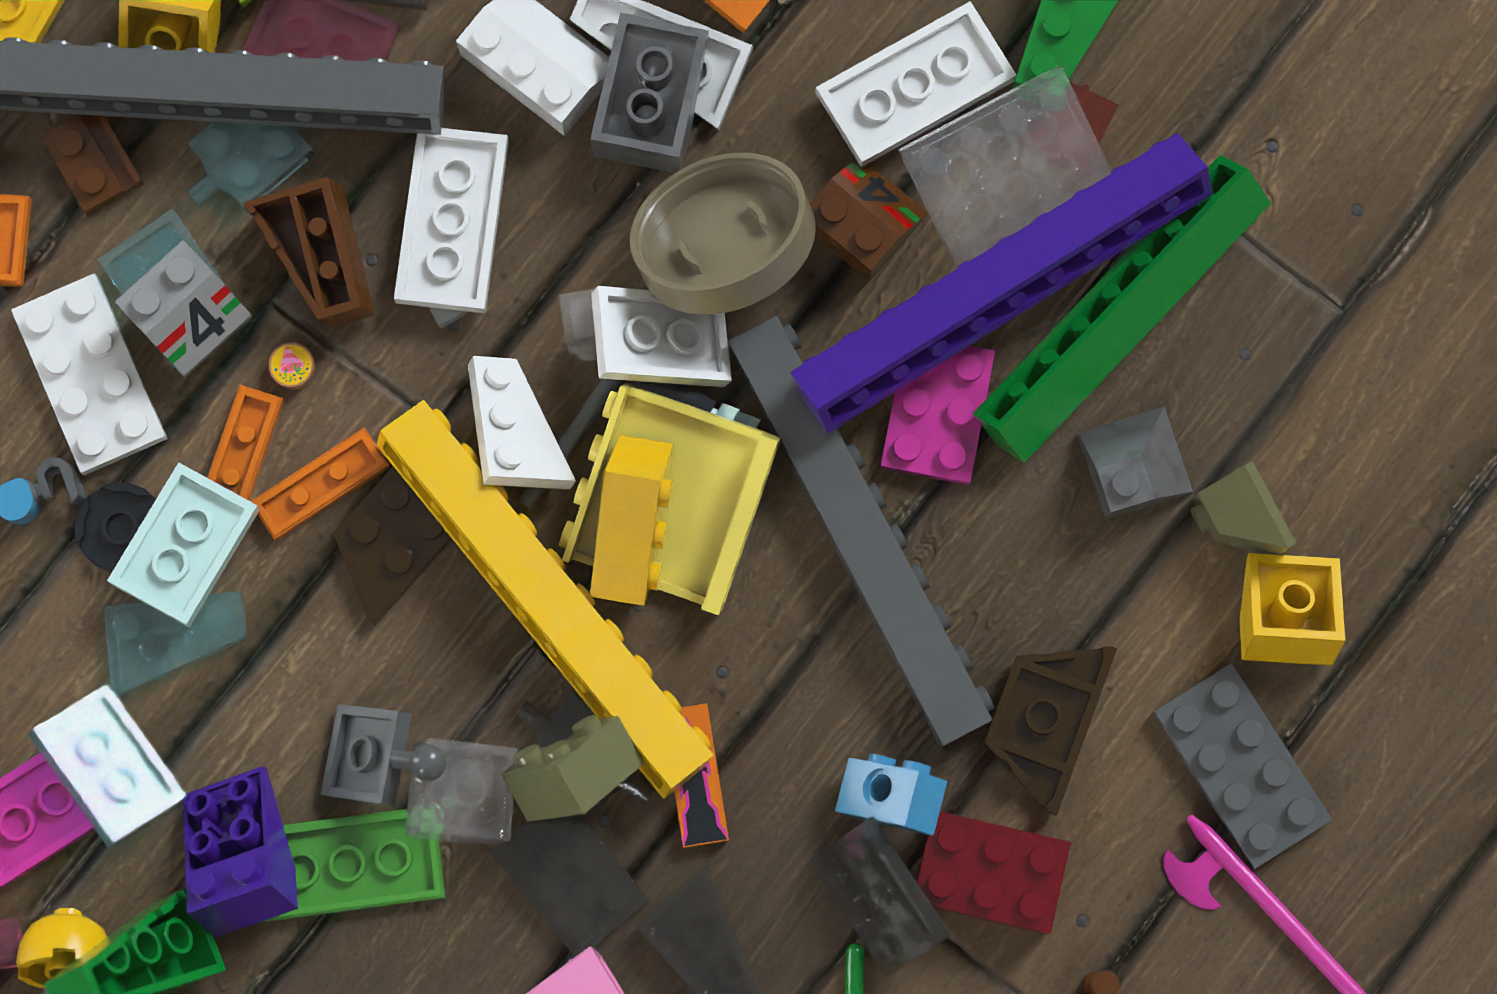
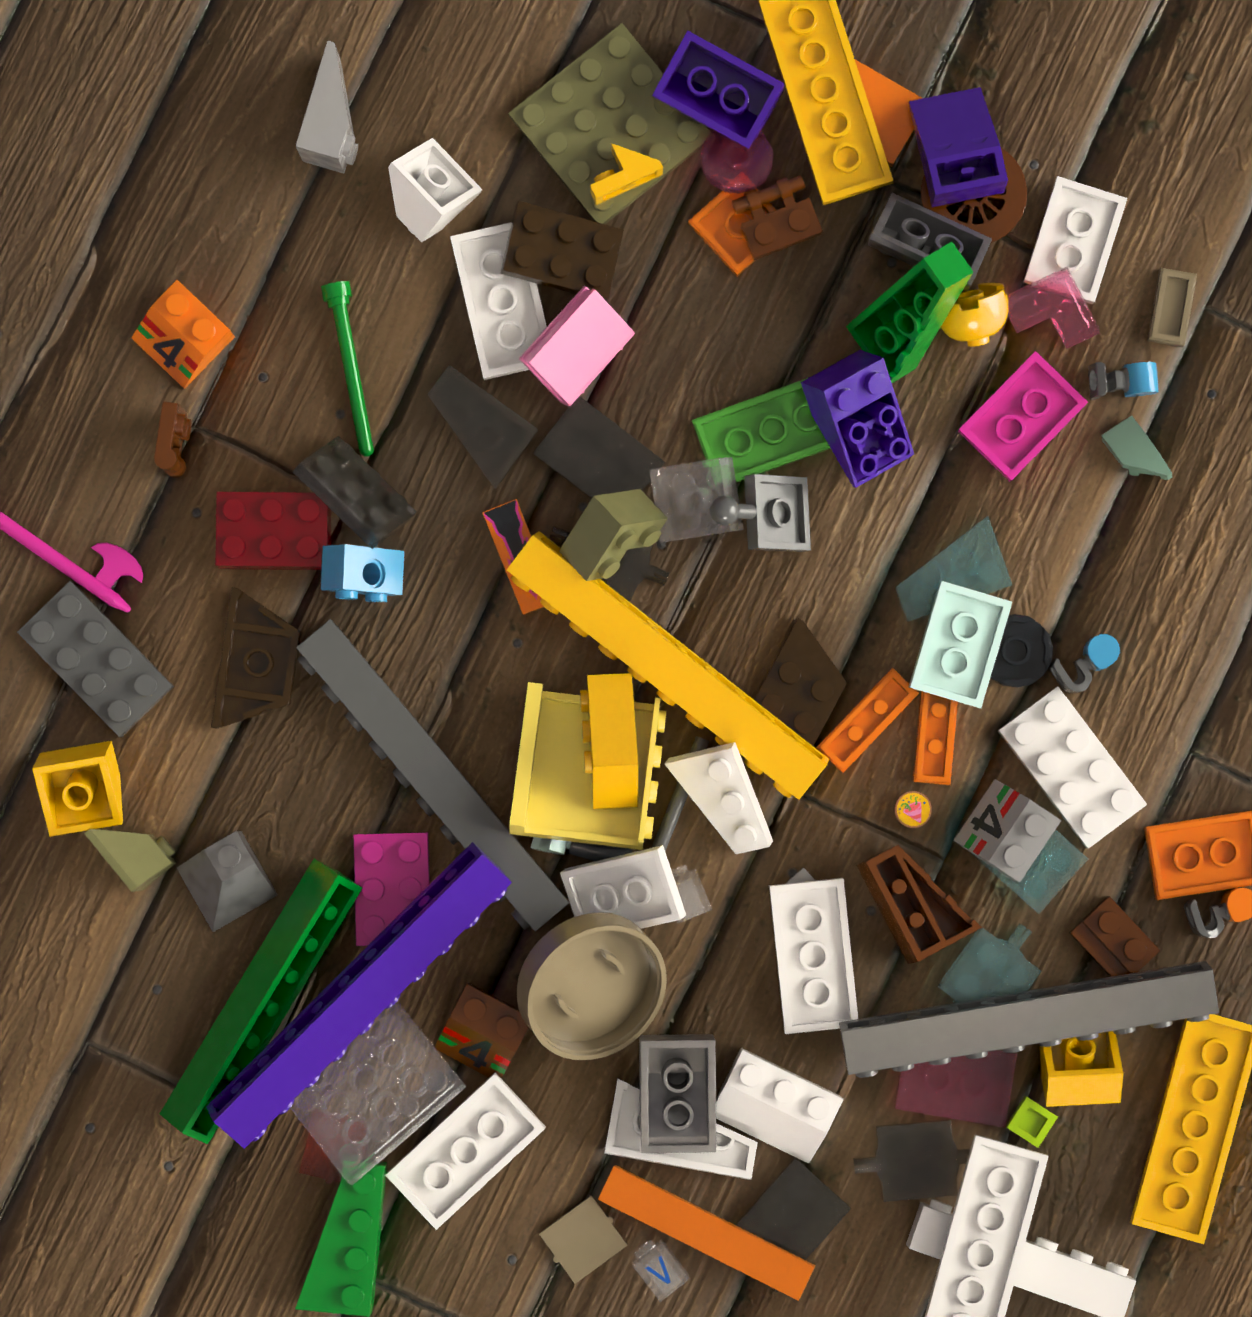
camera: 165 degrees right, 5 degrees up
(107, 765) = (976, 460): clear light blue plate -> none

